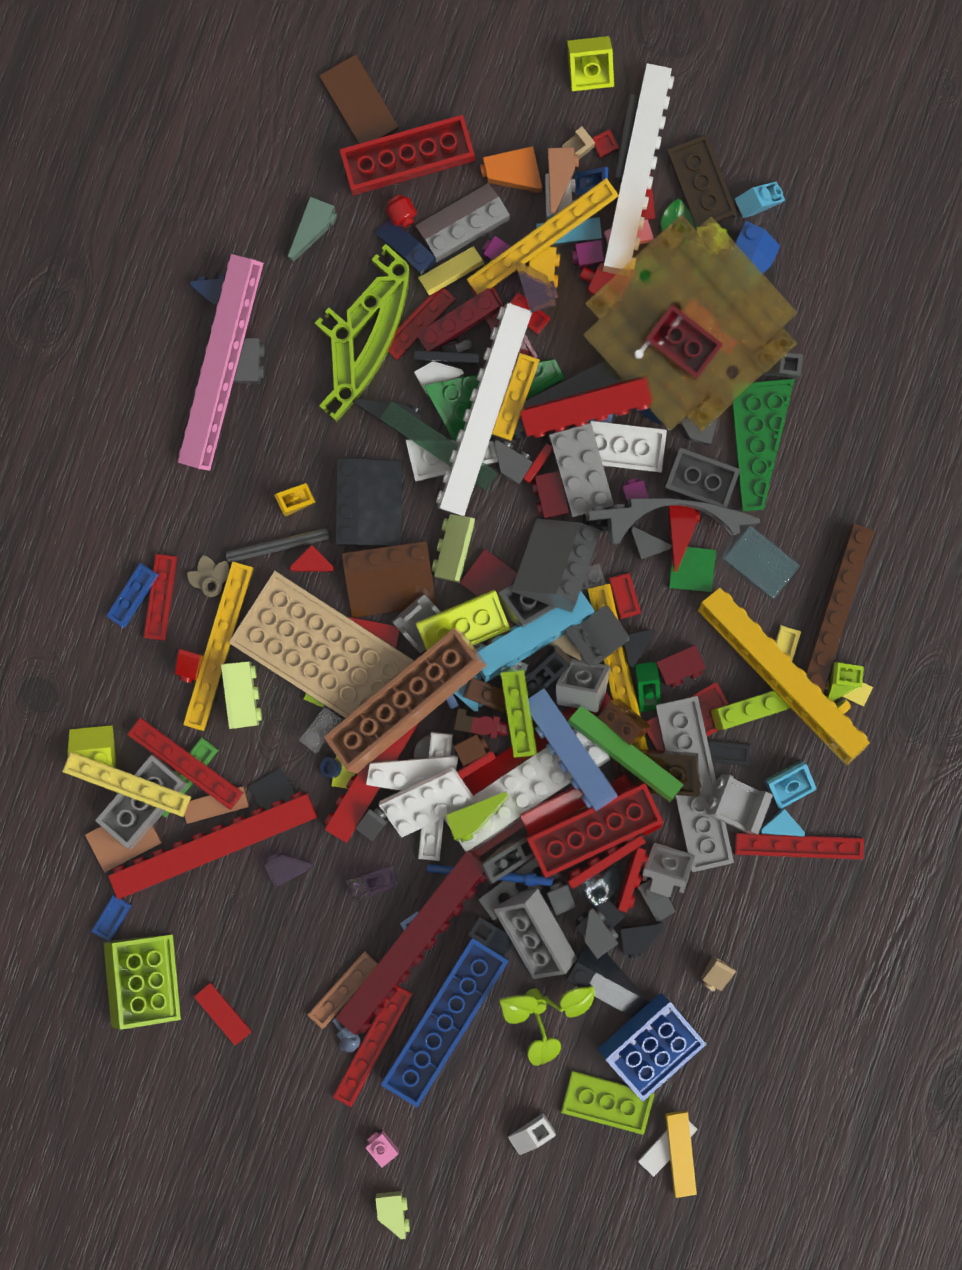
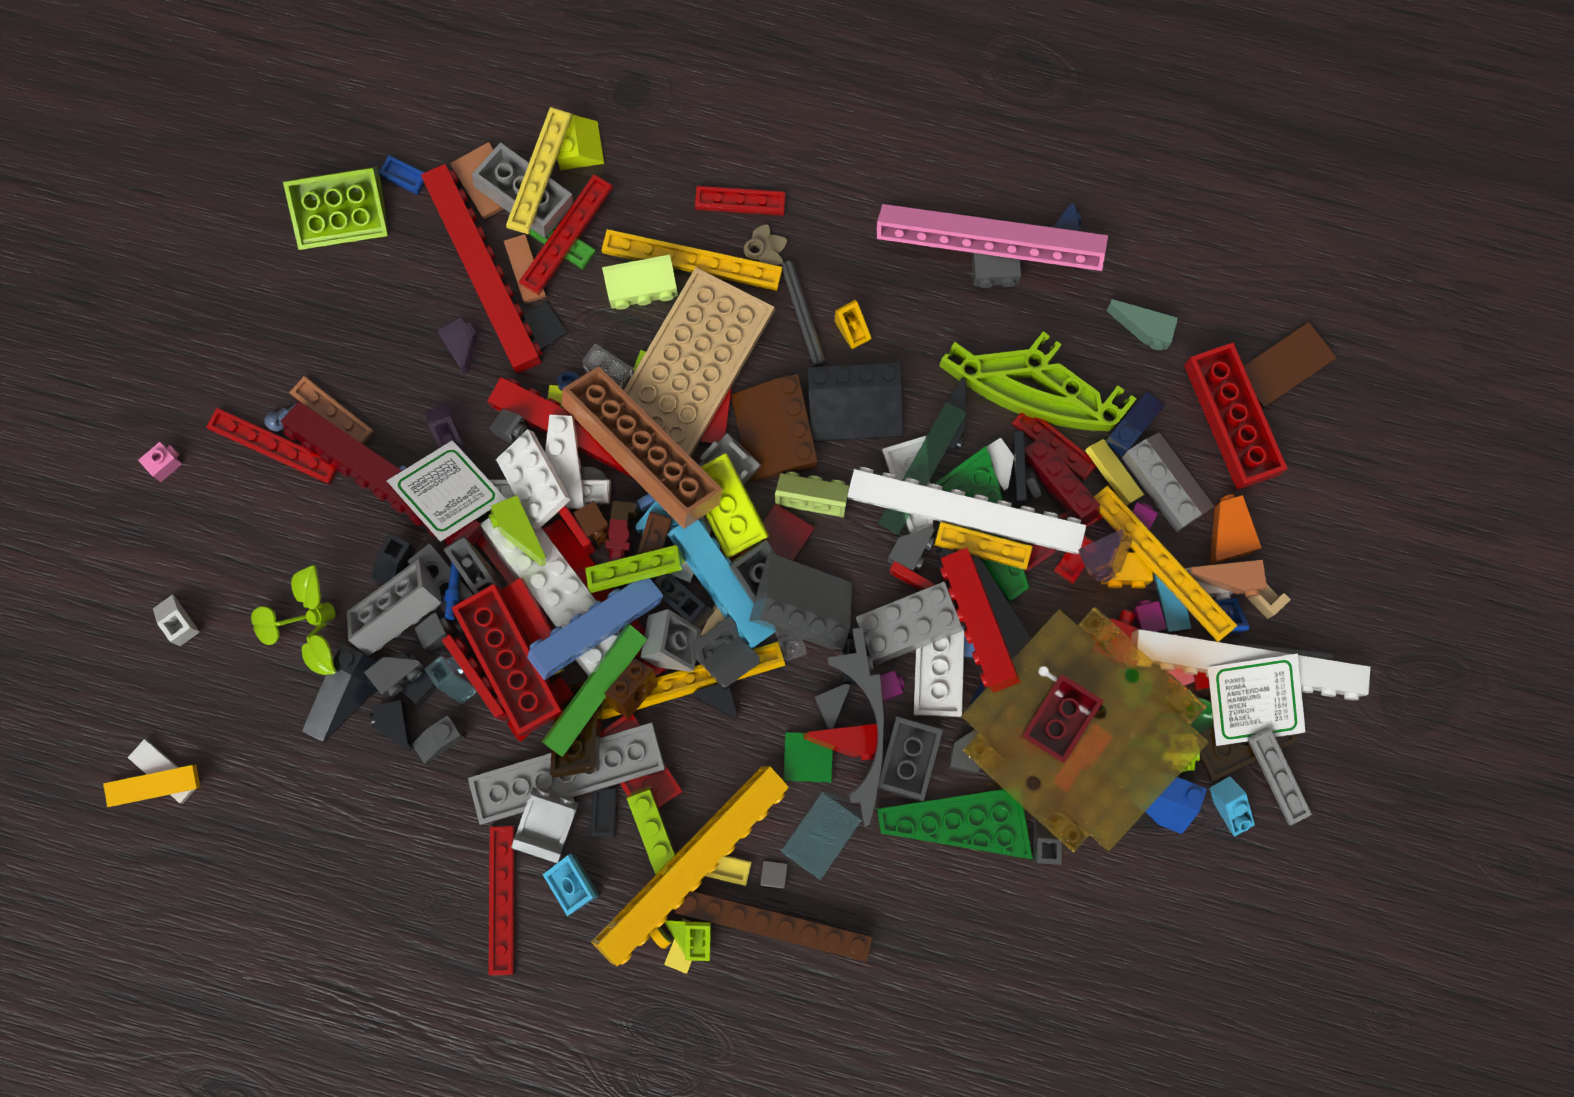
camera: 80 degrees right, 10 degrees down
(132, 595) = (740, 171): blue tile -> none
(188, 665) = (670, 228): red slope -> none
(223, 1013) = (304, 291): red tile -> none
(312, 561) = (789, 348): red slope -> none
(391, 1212) = (91, 475): yellowish green slope -> none
(401, 211) = (1173, 414): red head -> none
(432, 881) = (446, 490): none -> white sticker
(444, 1022) = (295, 516): blue brick -> none
(551, 495) = (877, 593): dark red brick -> none
(590, 63) = (1360, 607): neon yellow slope -> none
(605, 143) = (1273, 629): red tile -> none
(606, 1102) = (211, 702): lime tile -> none
(624, 595) = (773, 684): red tile -> none
(631, 879) = (455, 709): red plate -> none
(647, 686) = (674, 714): green slope -> none
(651, 1046) = (271, 744): blue slope -> none
(667, 869) = (468, 747): light grey panel -> none
(670, 167) = (1256, 697): none -> white sticker
(681, 665) = (698, 750): dark red brick -> none
(717, 974) = (353, 813): tan slope -> none
(736, 155) = (1279, 776): none -> light grey tile
(782, 824) = (524, 878): medium azure slope -> none
(793, 606) = (773, 874): none -> light grey slope

